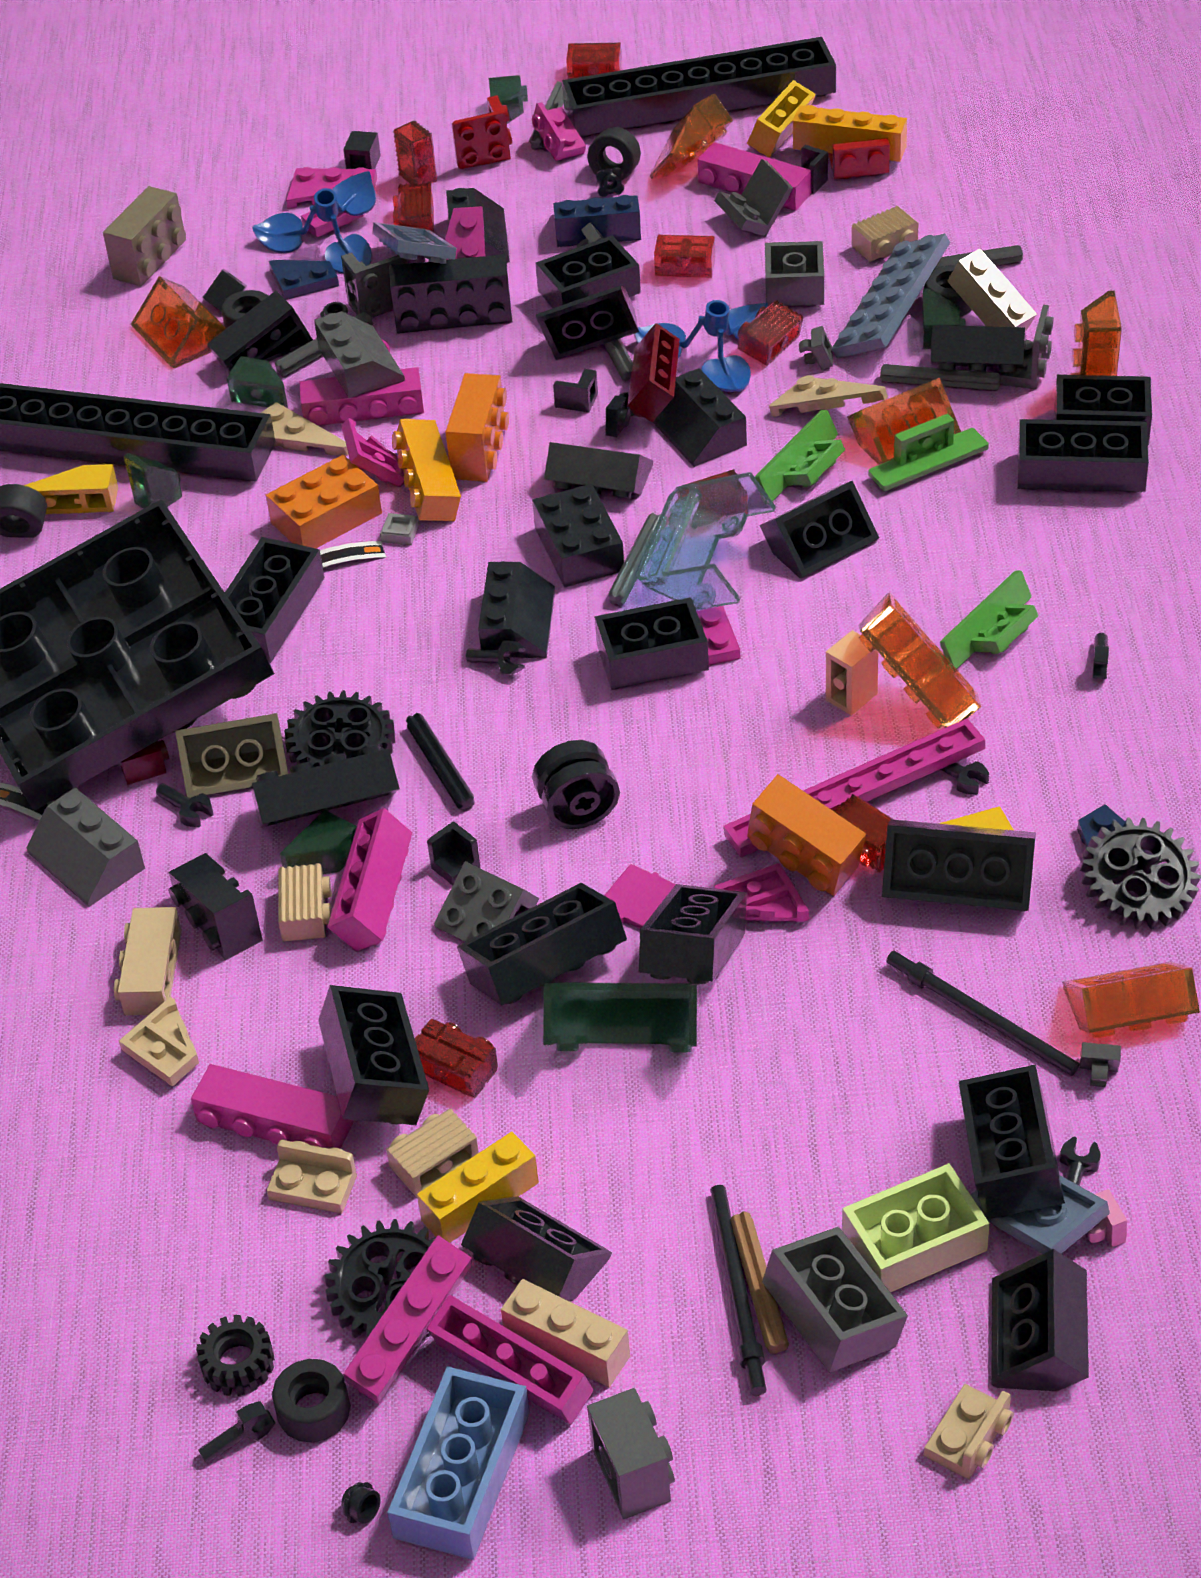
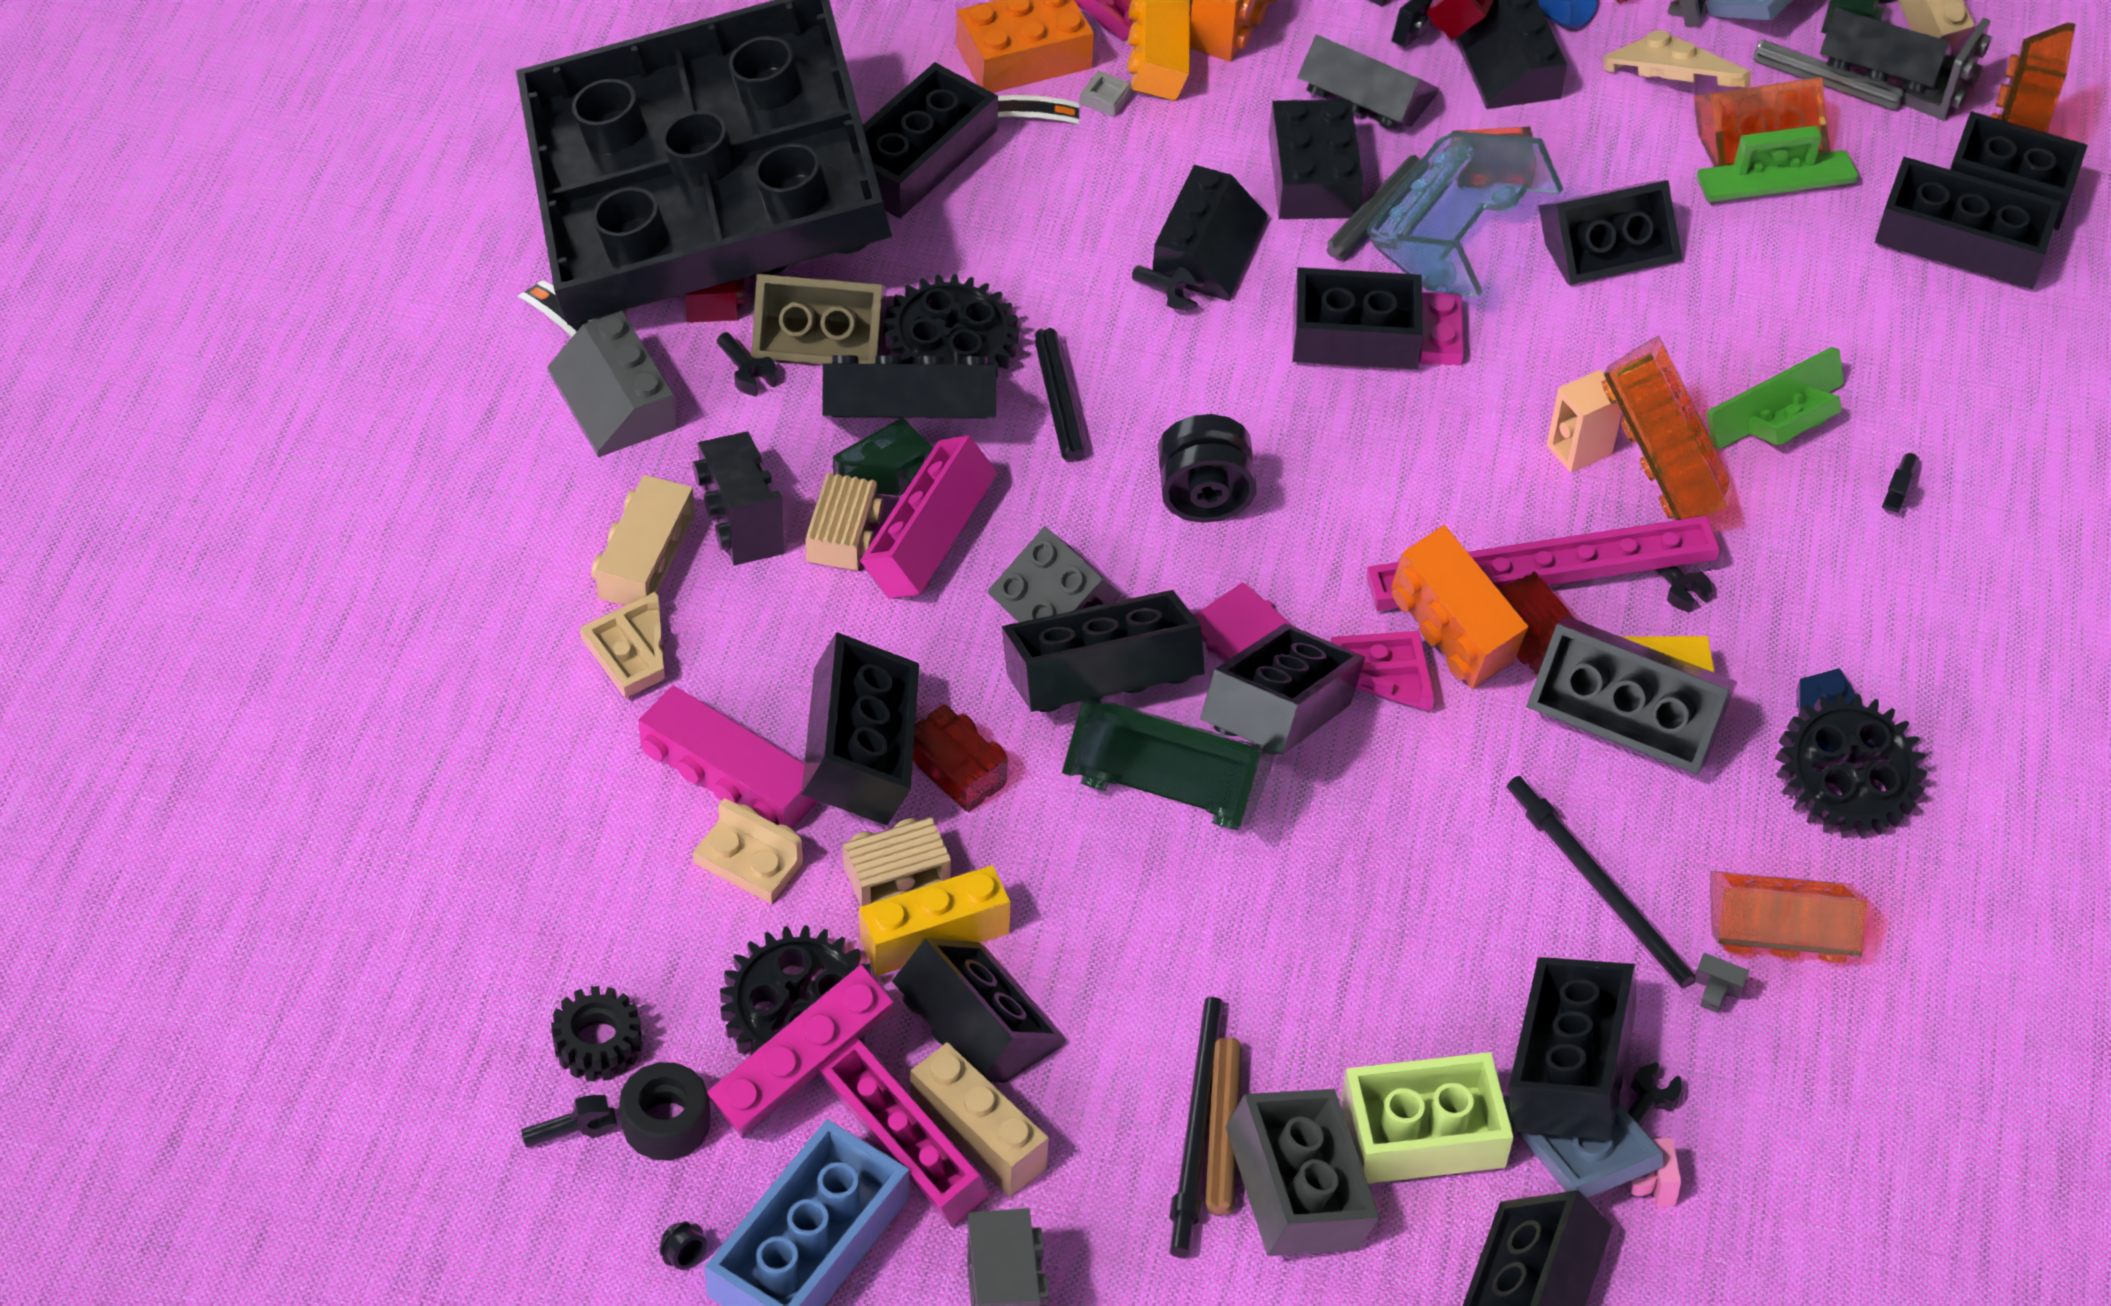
camera: 10 degrees right, 5 degrees up
(450, 849) = (1036, 505): black panel -> none
(802, 457) = (1621, 134): bright green bracket -> none

